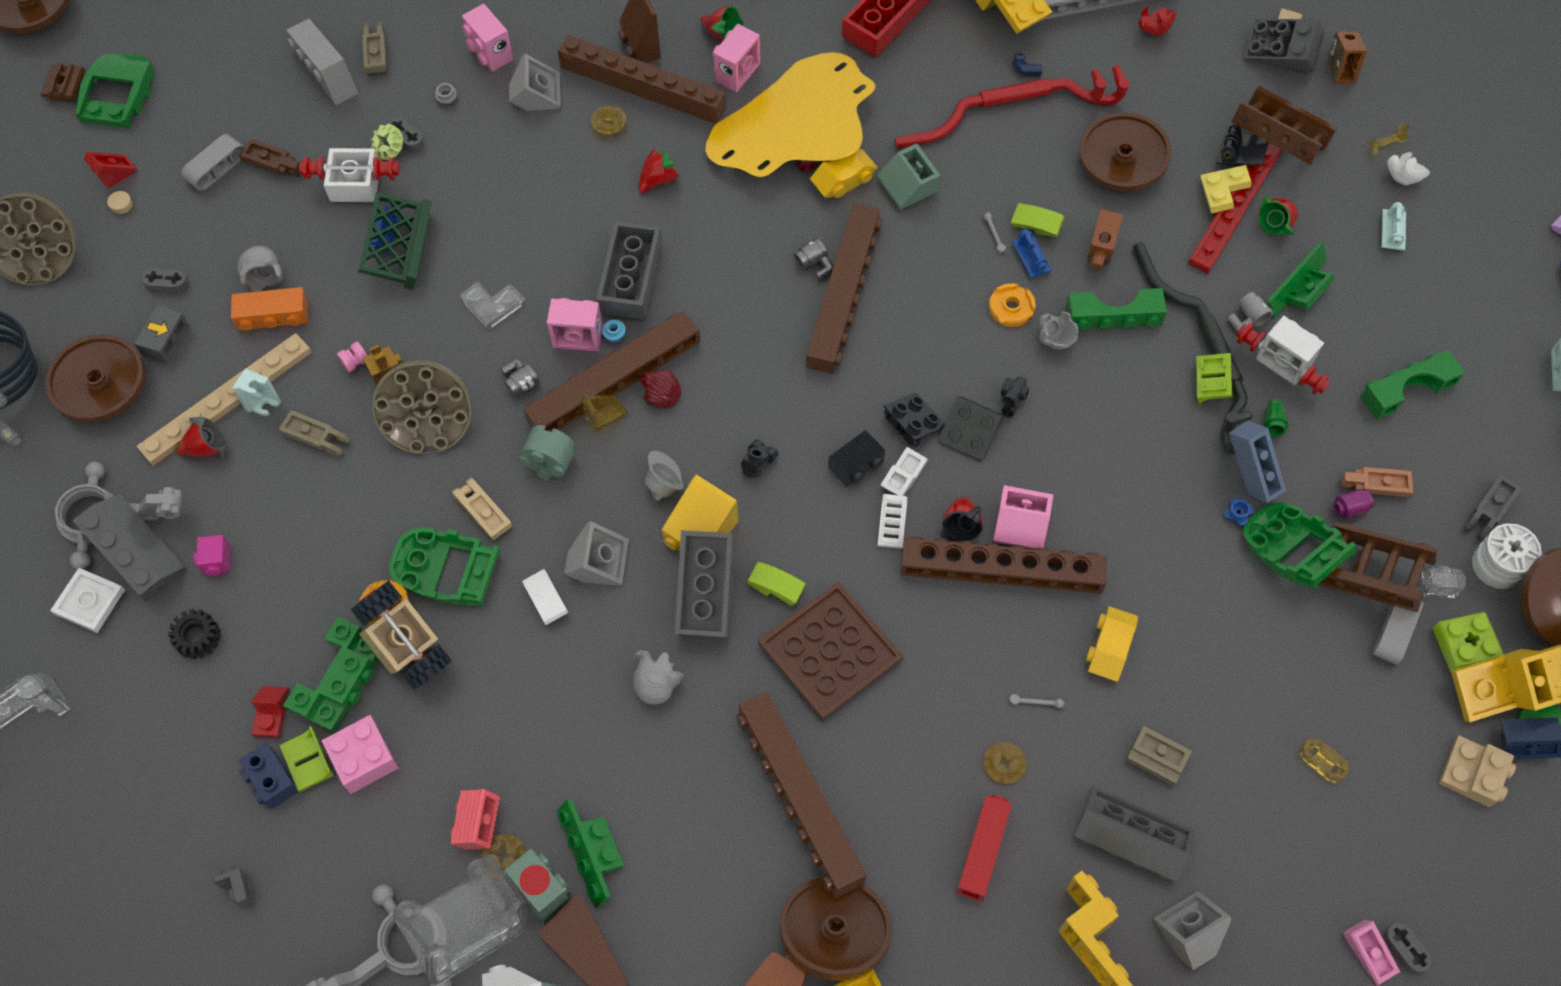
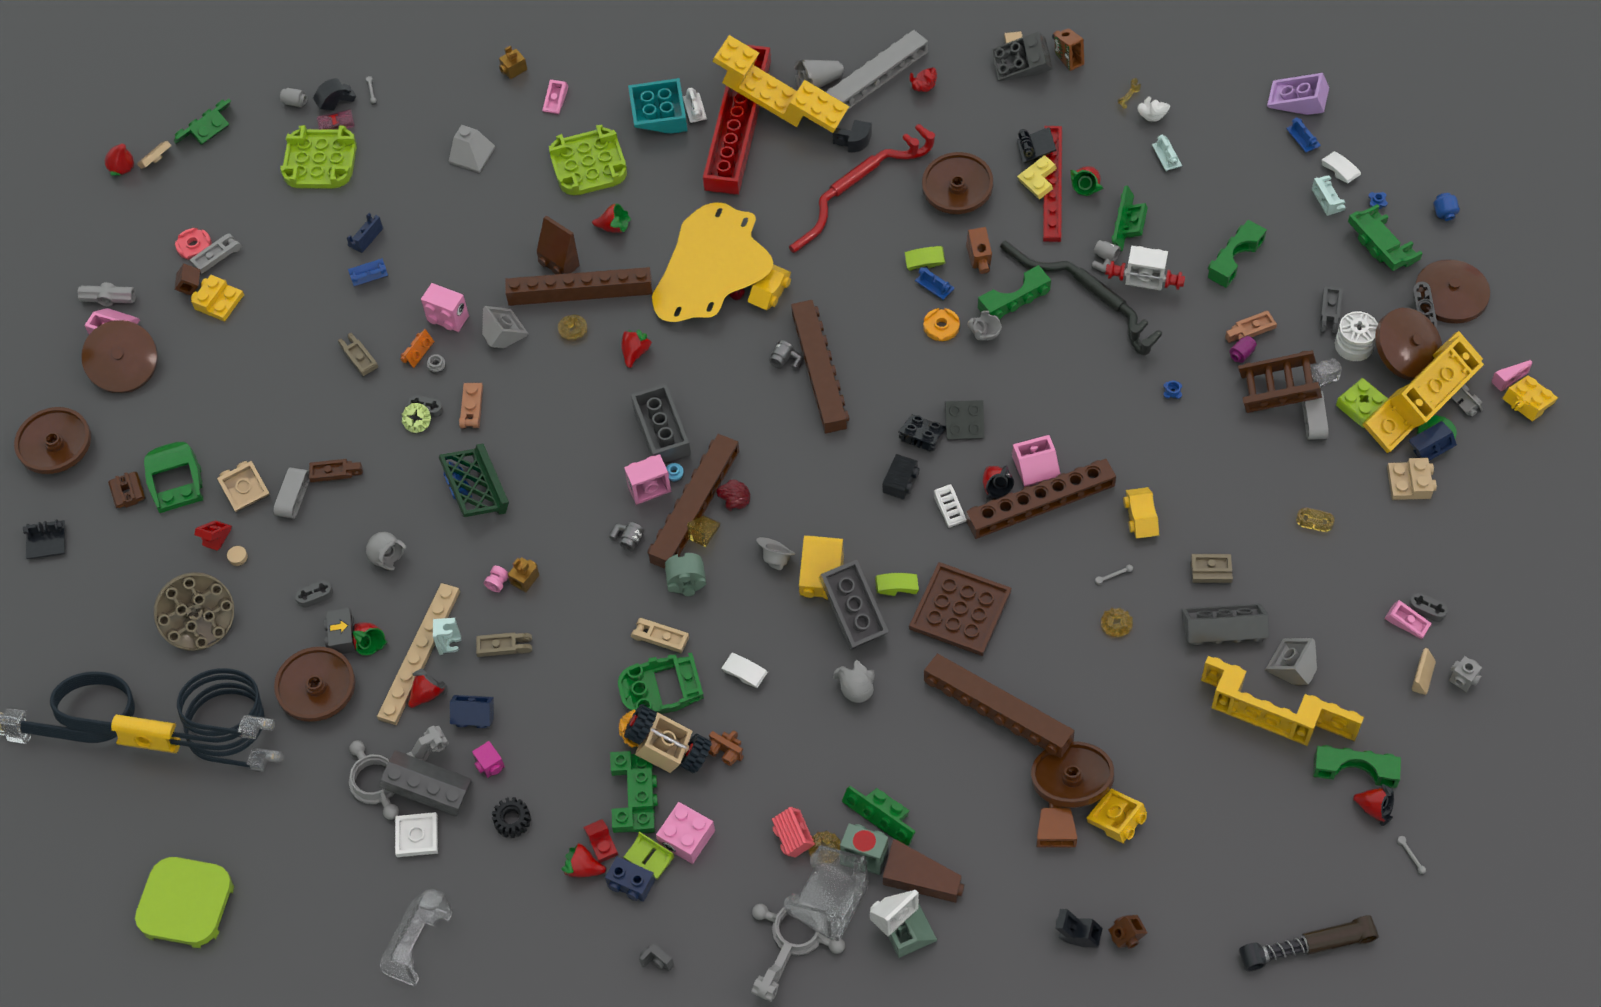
camera: 25 degrees left, 5 degrees down
(171, 131) = (242, 485): none -> tan plate
(180, 356) = (368, 638): none -> green hat
(227, 729) = (582, 863): none -> red hat
(229, 491) = (471, 711): none -> dark blue brick
(269, 308) = (410, 575): orange brick -> none
(322, 61) = (326, 380): light grey wedge -> none
(350, 173) = (408, 451): white brick -> none
(422, 406) = (577, 585): dark tan bracket -> none
(437, 70) = (418, 348): none -> orange hinge
(452, 156) = (471, 405): none -> nougat plate
(470, 687) = (727, 743): none -> dark orange hips
(493, 308) = (573, 499): clear plate -> none
(597, 556) = (763, 626): light grey slope -> none
(736, 58) = (641, 239): bright pink brick -> none
(757, 457) = (832, 509): black plate -> none
(905, 472) = (937, 470): white slope -> none
(909, 177) = (818, 268): sand green slope -> none
(984, 847) = (1136, 680): red brick -> none
(1000, 247) = (910, 289): light grey hinge -> none
(1013, 392) = (979, 381): black plate -> none
(1024, 68) = (850, 155): dark blue arm -> none
(1043, 51) = (854, 139): none -> black brick
(1217, 386) = (1110, 315): lime piece -> none
(1257, 461) = (1168, 349): sand blue brick -> none
(1276, 418) = (1162, 318): green cone -> none
(1281, 529) = (1206, 387): green slope -> none
(1284, 125) = (1055, 115): reddish brown fence -> none

